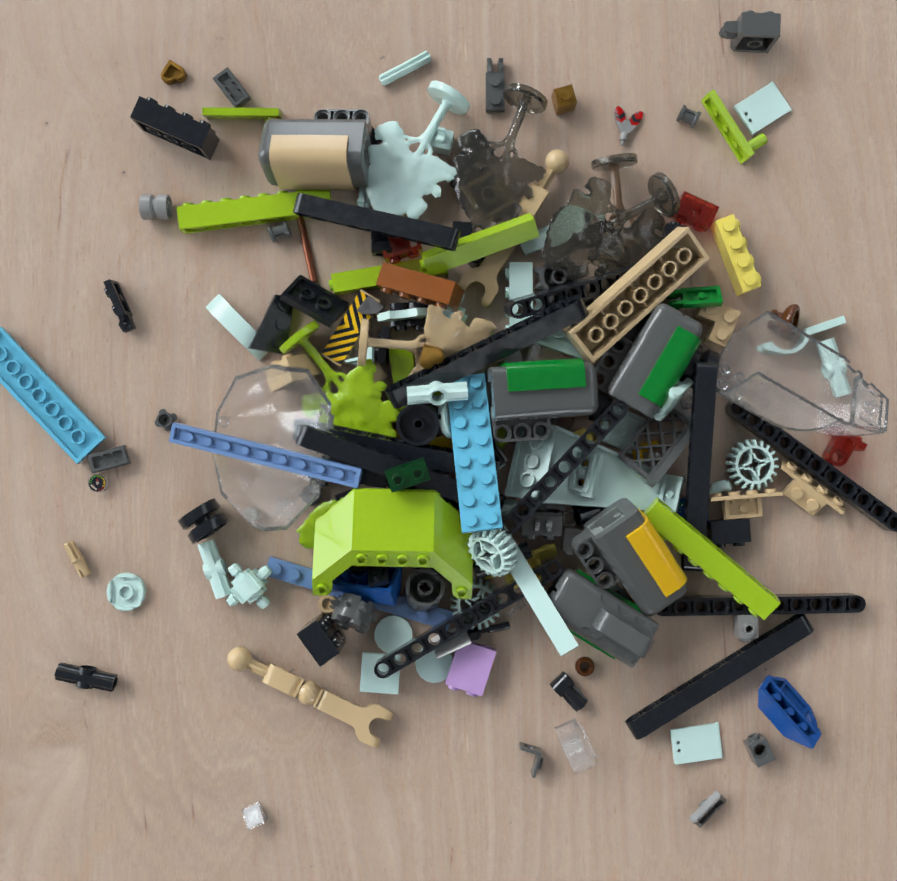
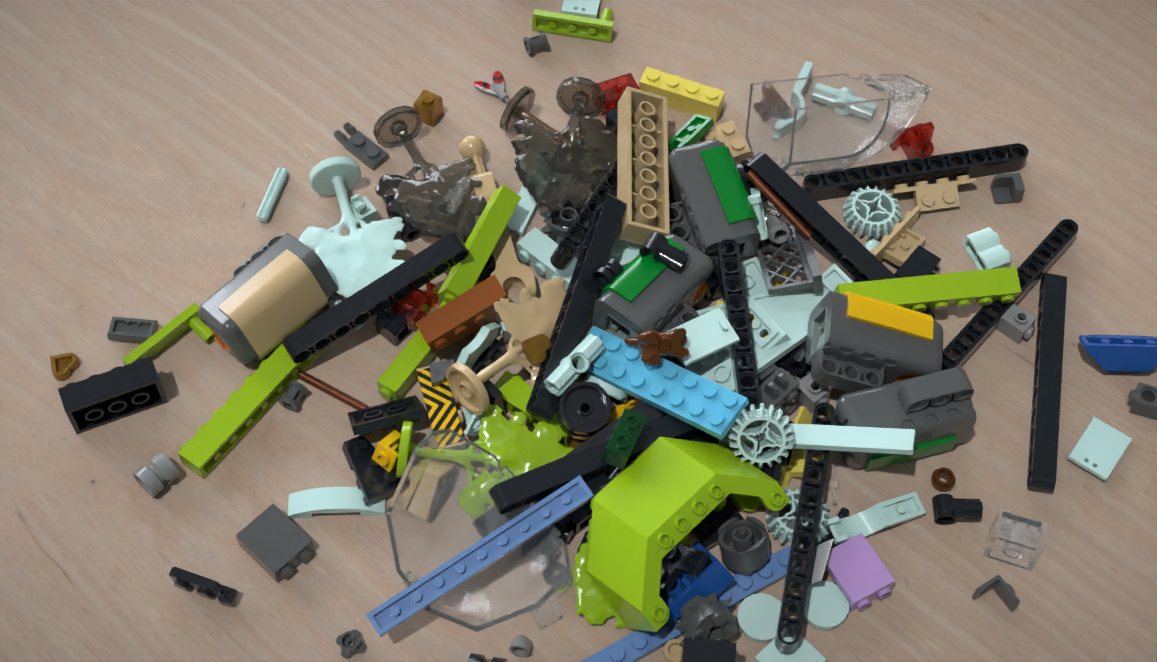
camera: 50 degrees left, 30 degrees down
(180, 319) = (275, 543): none -> dark grey brick
(295, 325) = (386, 451): none -> yellow bracket
(494, 435) = (656, 344): none -> reddish brown animal
(498, 195) = (455, 196): none -> clear plate
(516, 649) = (876, 517): none -> light aqua piece
(519, 355) = (605, 275): none -> black wheel
(530, 454) = (707, 335): none -> light aqua container
(566, 378) = (664, 252): none -> black piece
(675, 418) = (777, 230): none -> light grey cone
(689, 408) = (780, 206): none -> copper bar
(788, 563) = (986, 250): none -> light aqua brick
(857, 536) = (1007, 188): none -> dark grey panel

